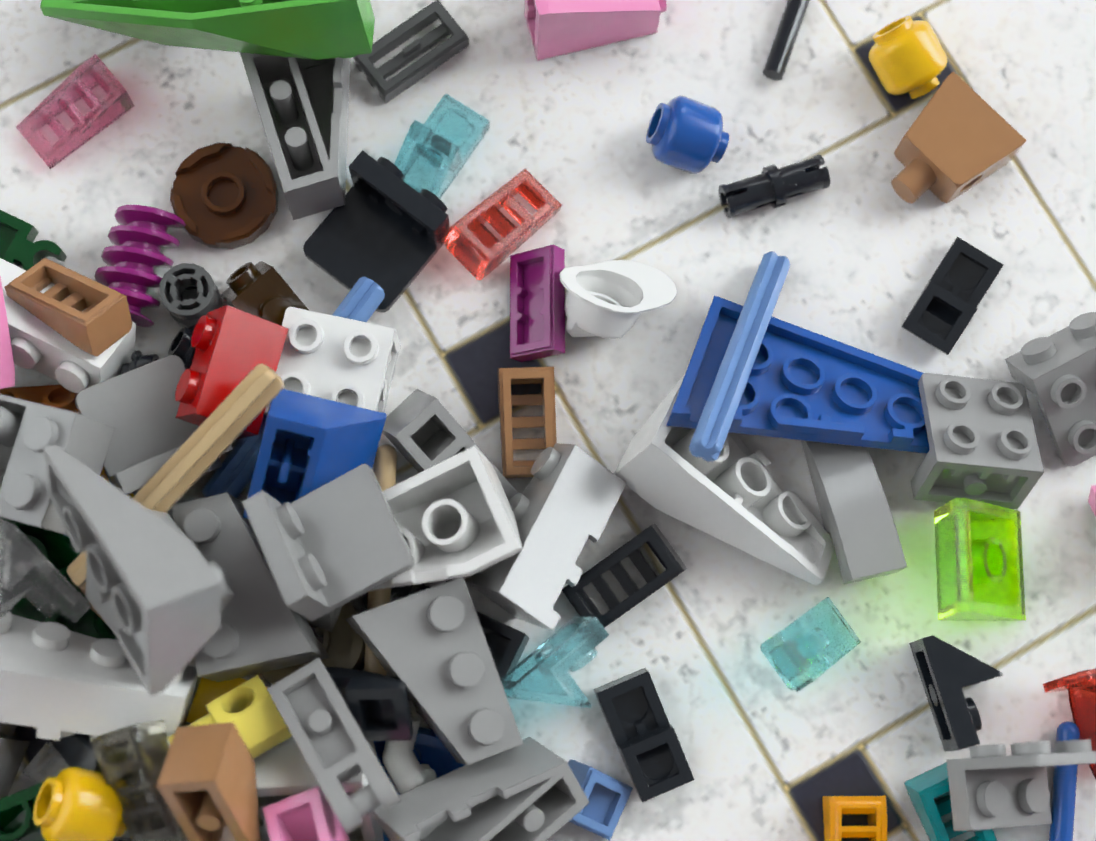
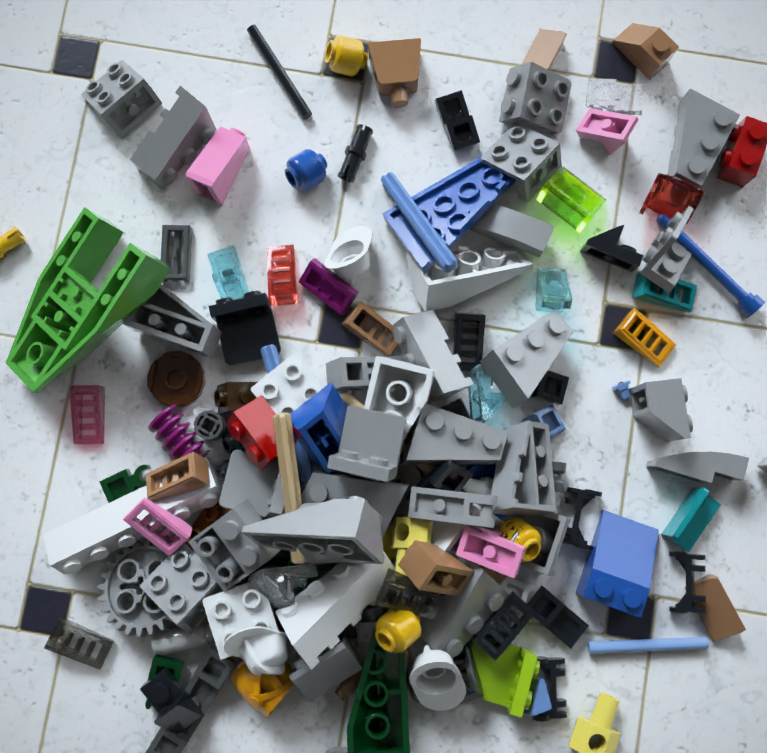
camera: 45 degrees left, 5 degrees up
(668, 681) = (526, 357): none -> wedge

